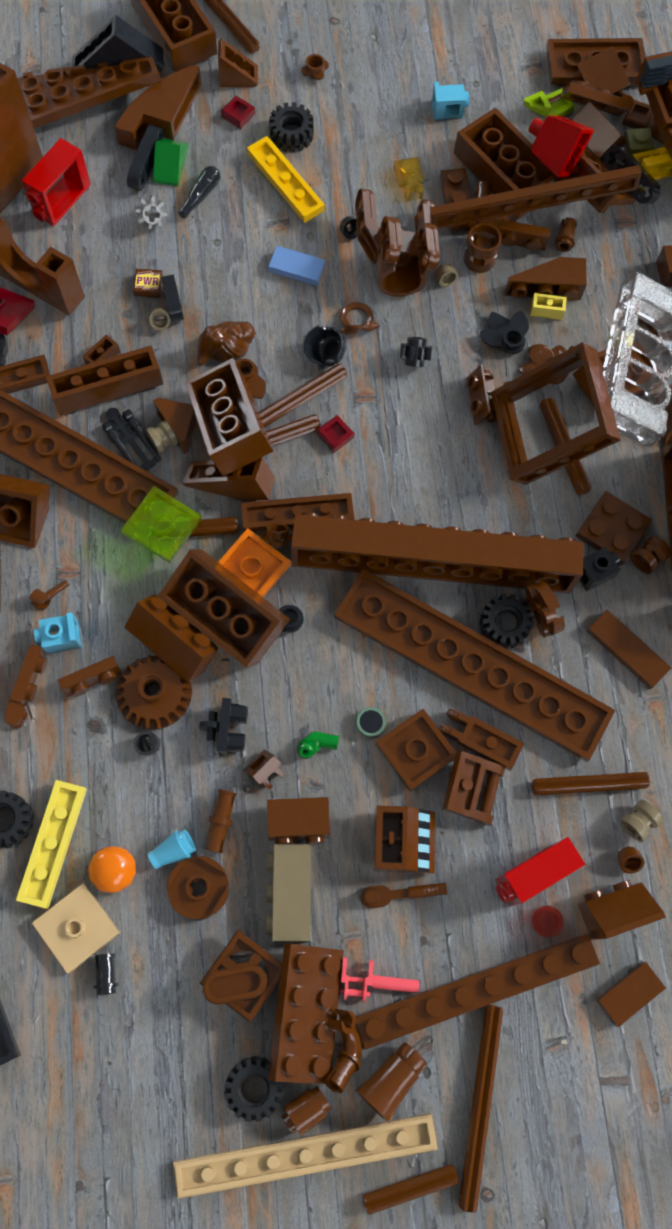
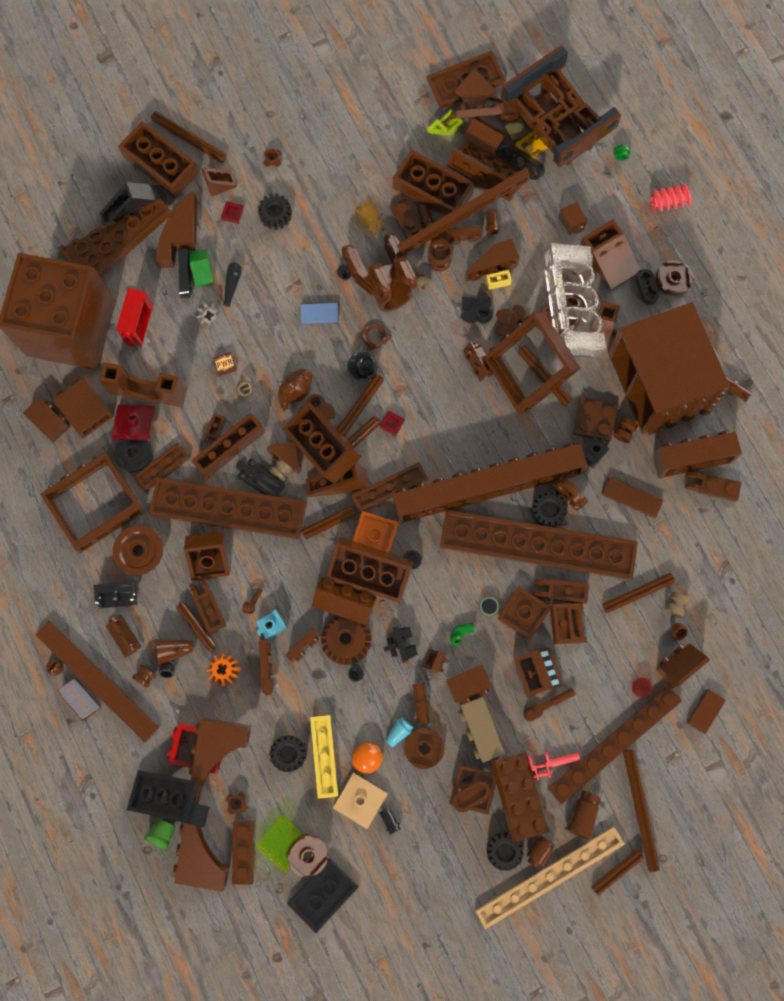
camera: 10 degrees left, 5 degrees up
(161, 524) = (307, 530): clear neon green plate -> none
(172, 298) = (246, 369): black beam -> none
(277, 534) = (383, 508): reddish brown plate -> none
(285, 179) = (286, 252): yellow plate -> none
(350, 1057) = (554, 811): reddish brown piece -> none
(415, 351) = (423, 347): black gear -> none
(449, 101) = (375, 150): medium azure brick -> none
(538, 872) = (626, 661): red window -> none
(559, 143) = (465, 165): red torso -> none

